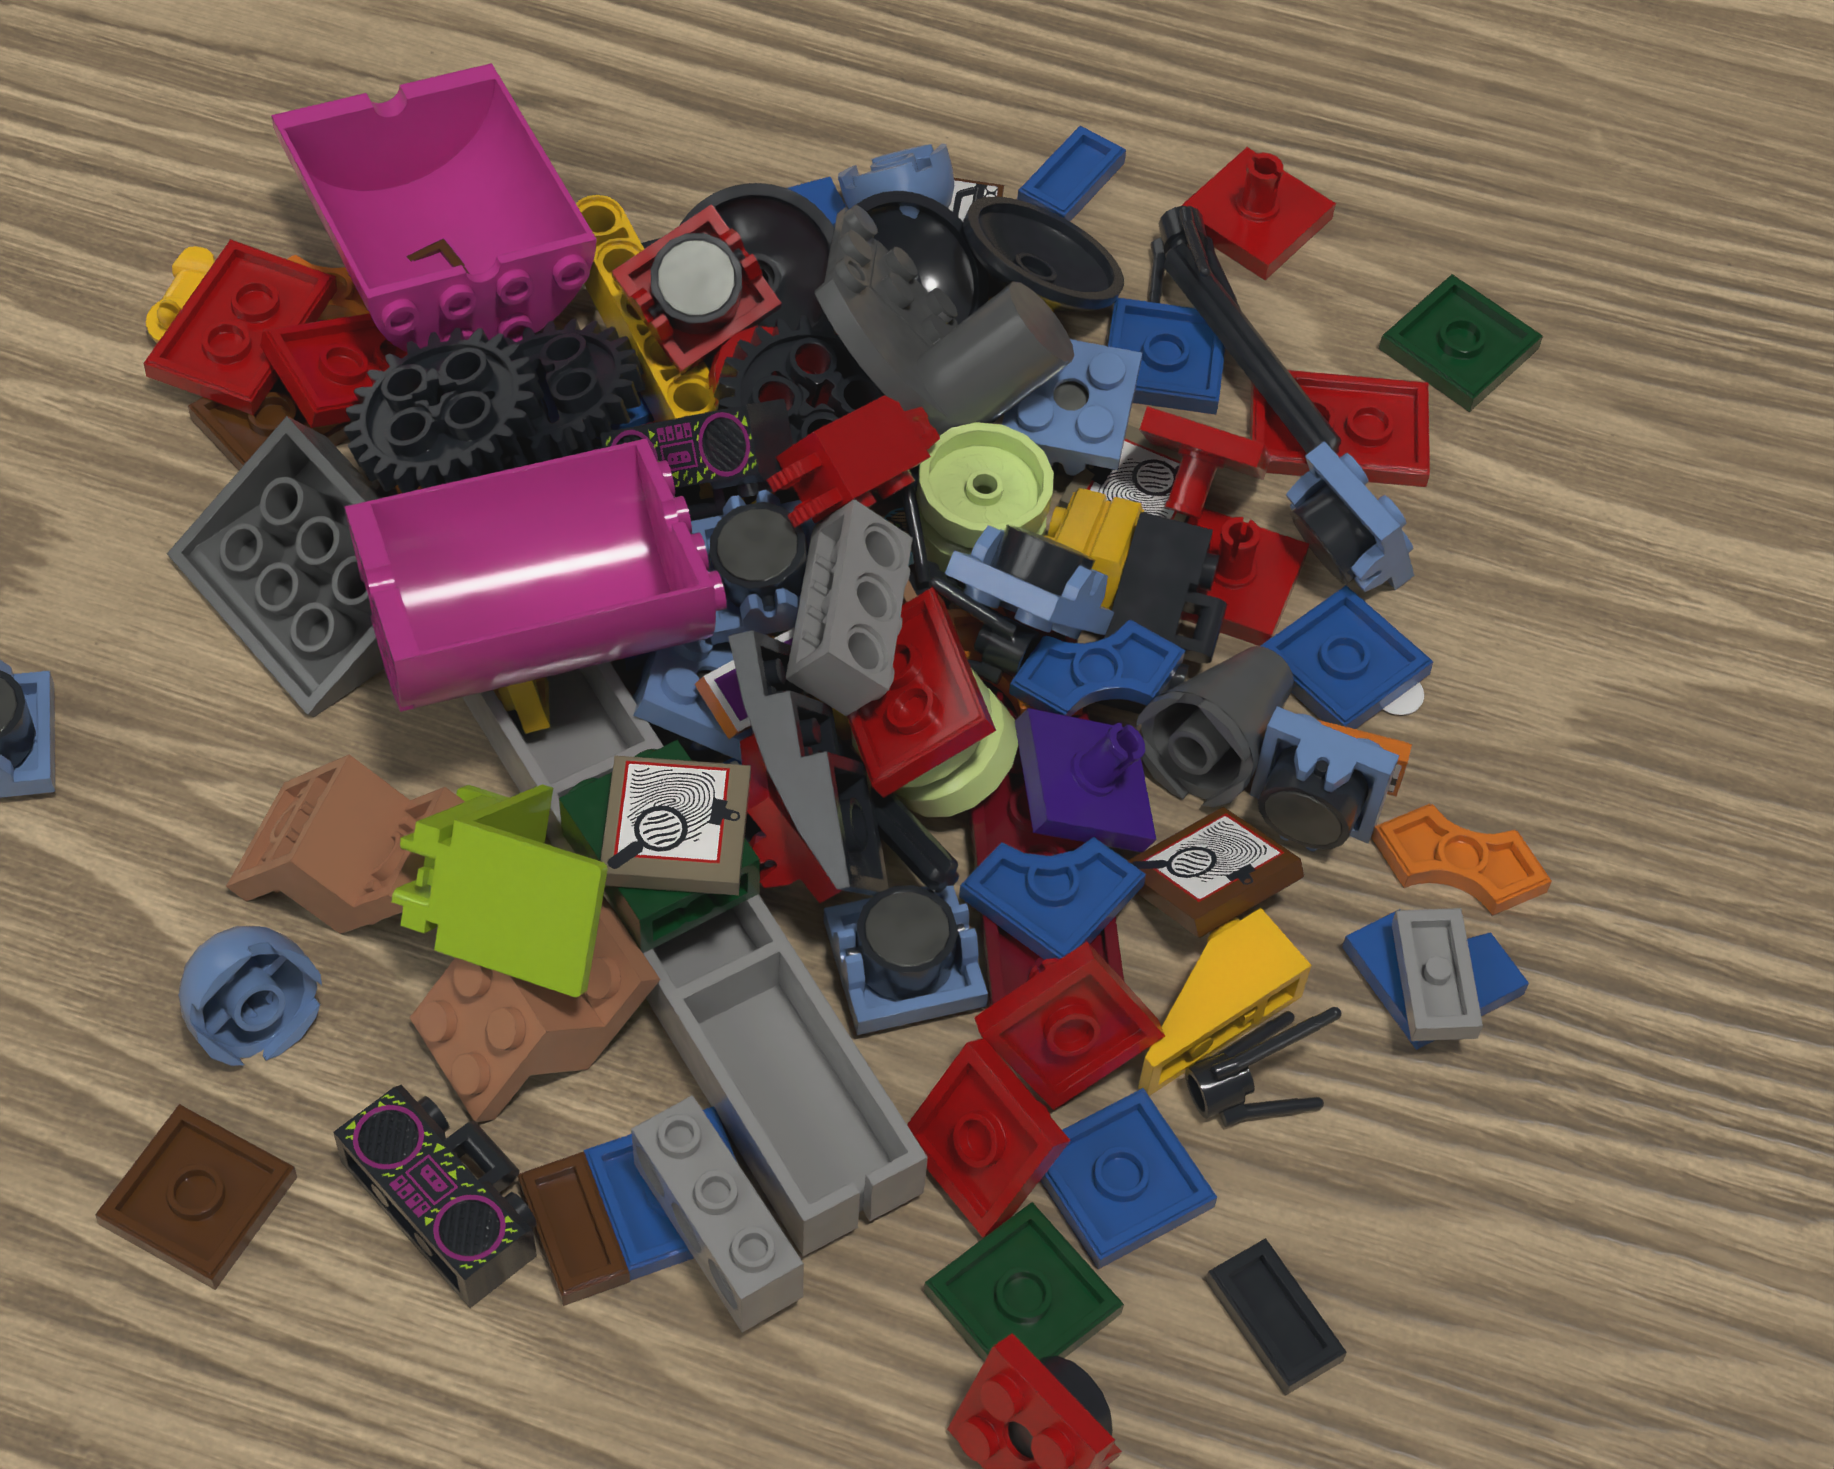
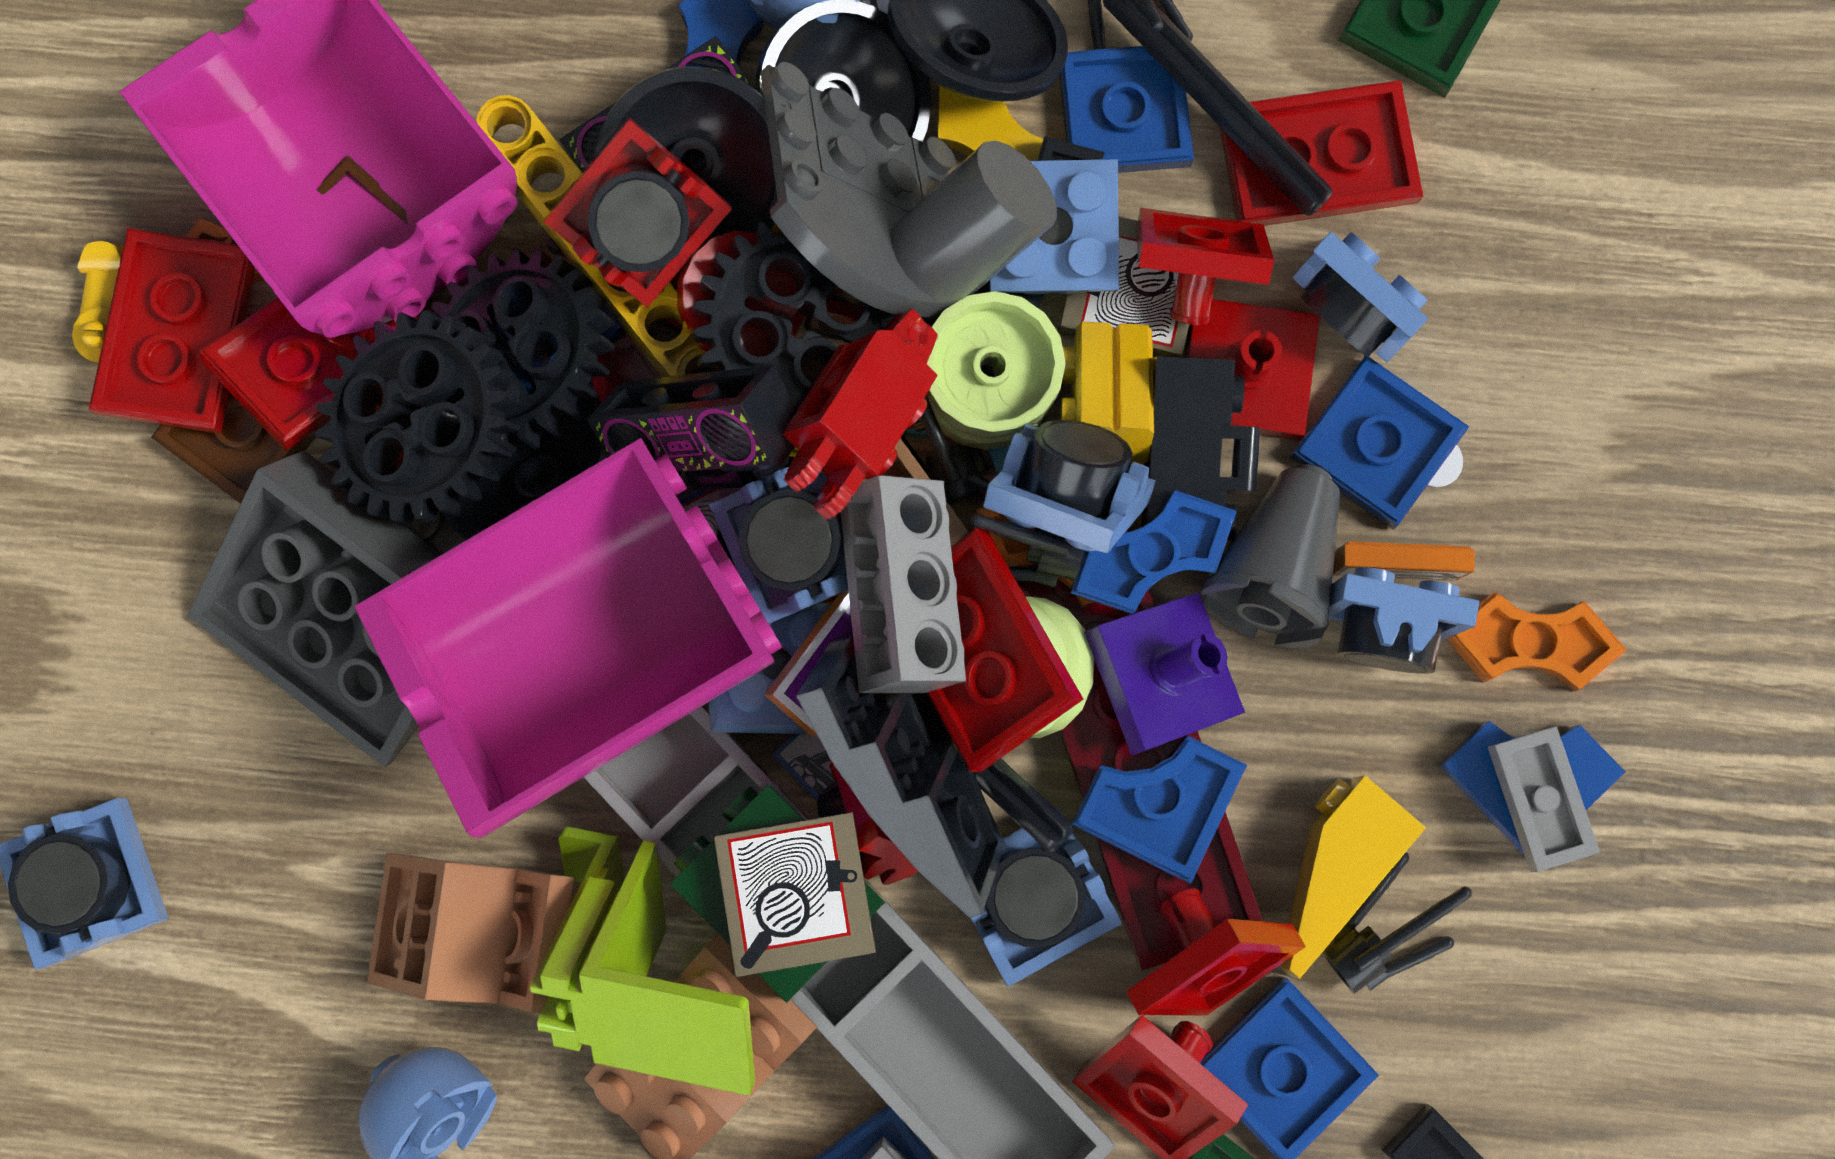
camera: 10 degrees left, 25 degrees up
(1214, 871) = (1306, 734): tile -> none

